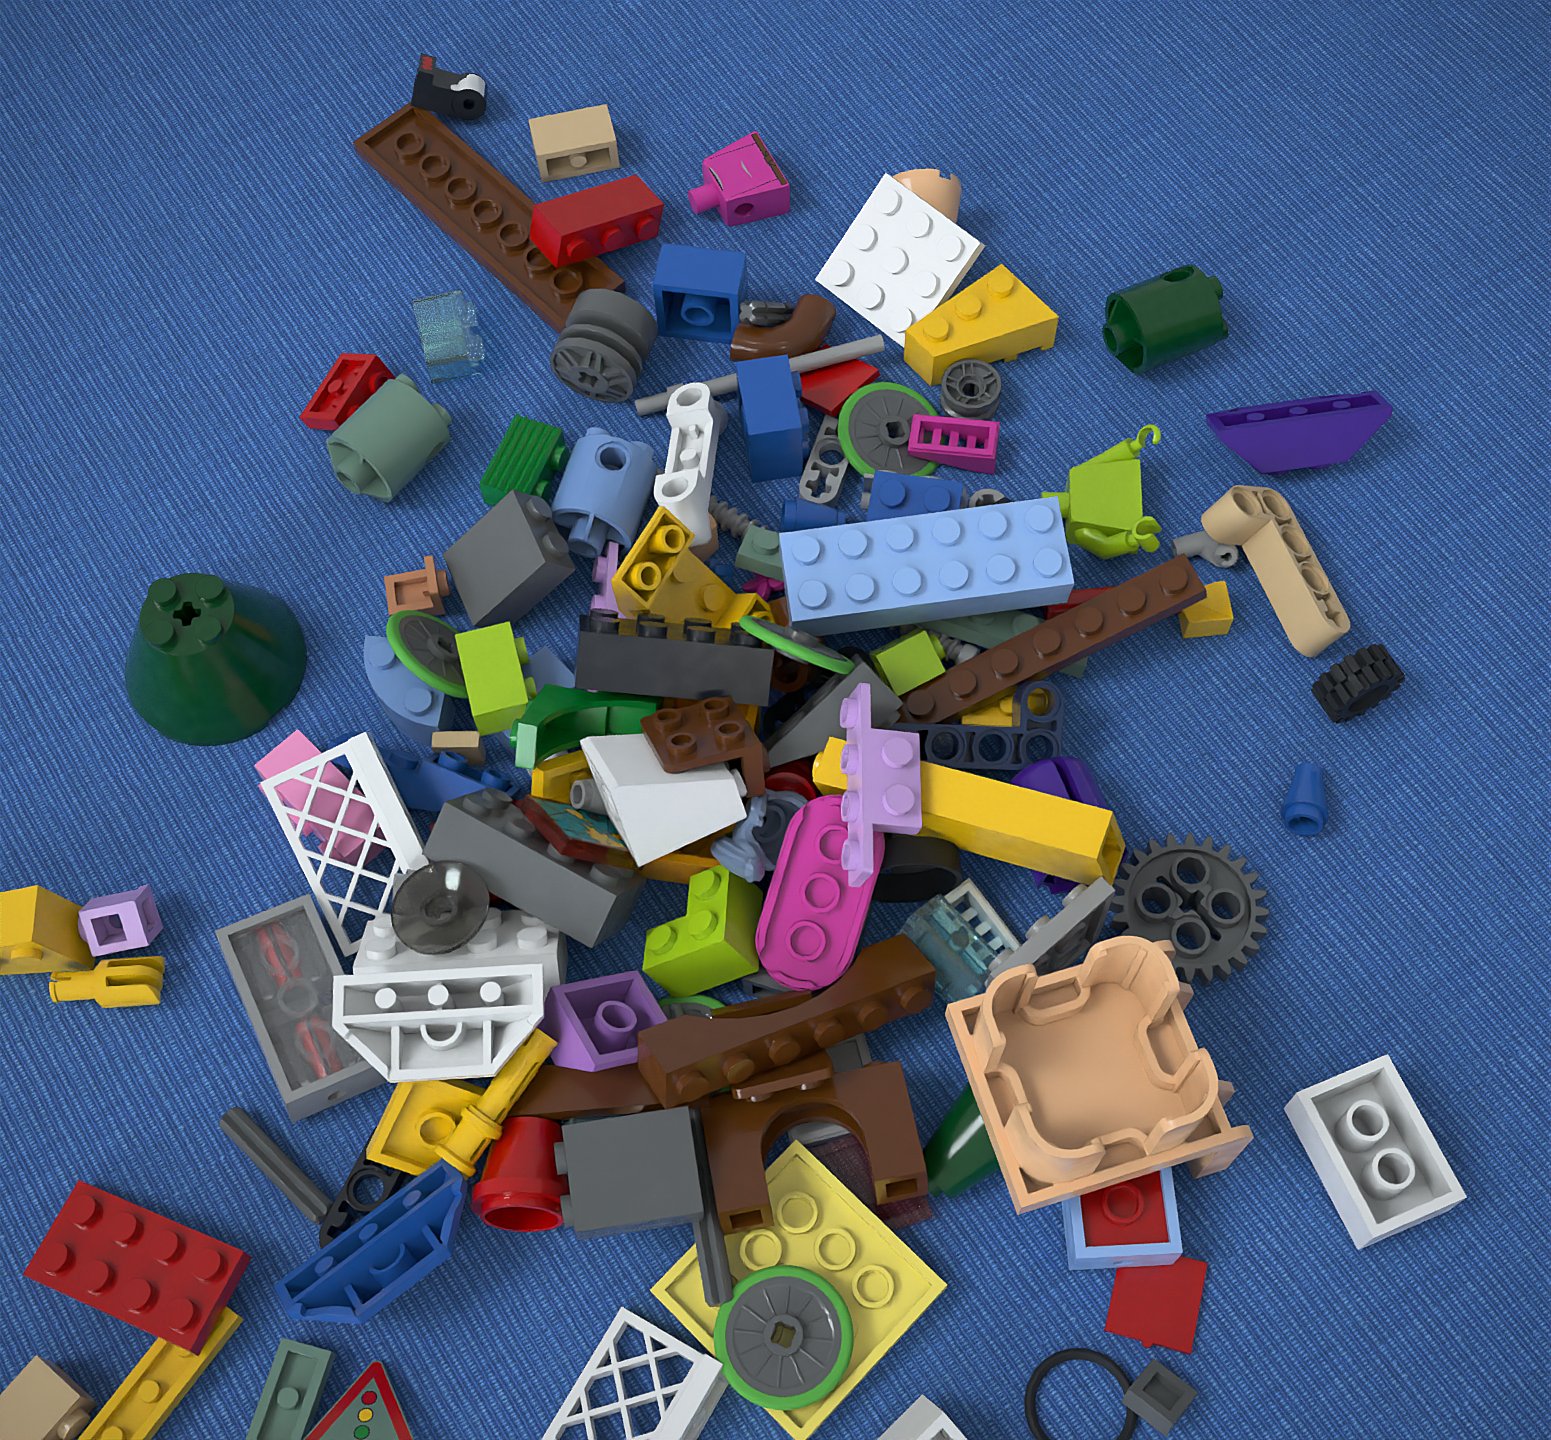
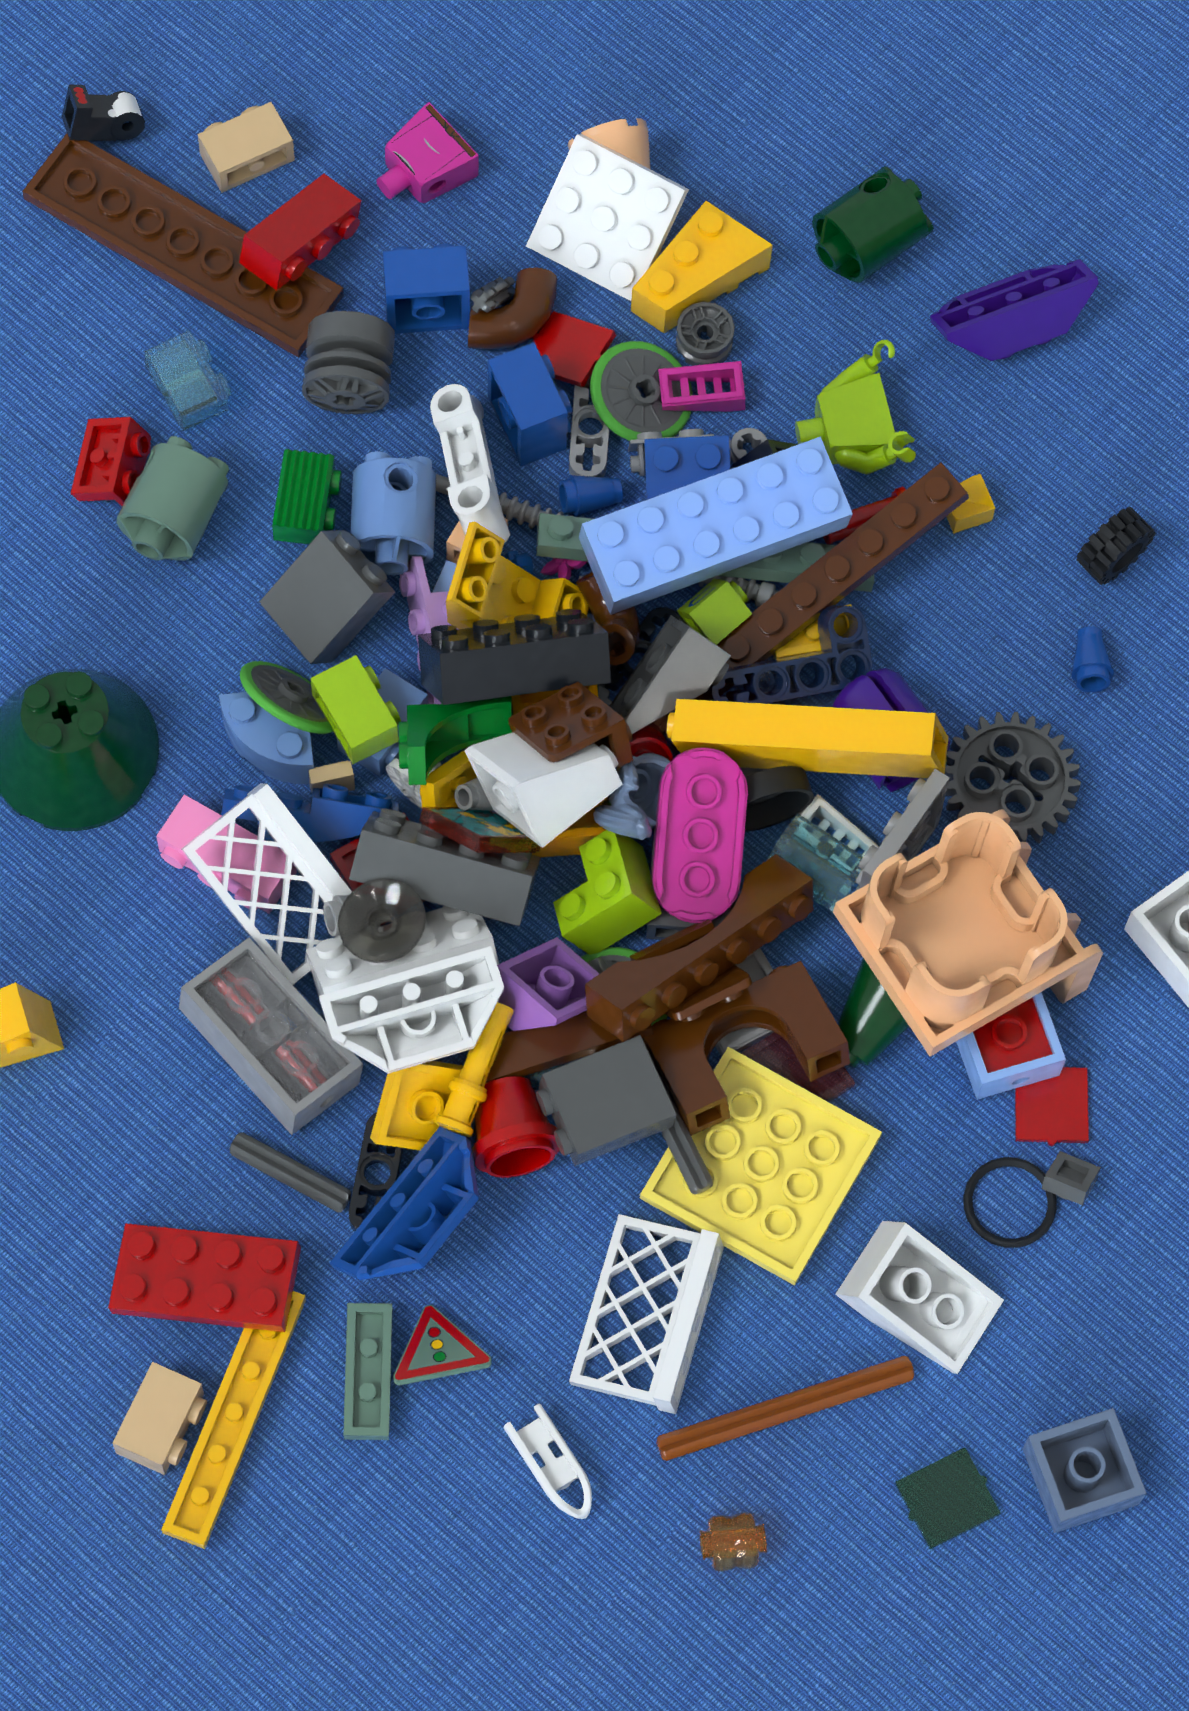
camera: 20 degrees left, 5 degrees up
(108, 934) = (79, 1015): lavender brick -> none
(113, 982) = (95, 1054): yellow arm -> none
(418, 589) = (244, 641): nougat bracket -> none
(797, 644) = (626, 622): wheel -> none
(800, 363) = (478, 370): light grey bar -> none
(819, 1350) = (757, 1230): dark grey wheel -> none
(881, 784) = (733, 732): lavender bracket -> none
(1206, 547) = (958, 440): light grey arm -> none
(1283, 563) = (1029, 446): tan beam -> none

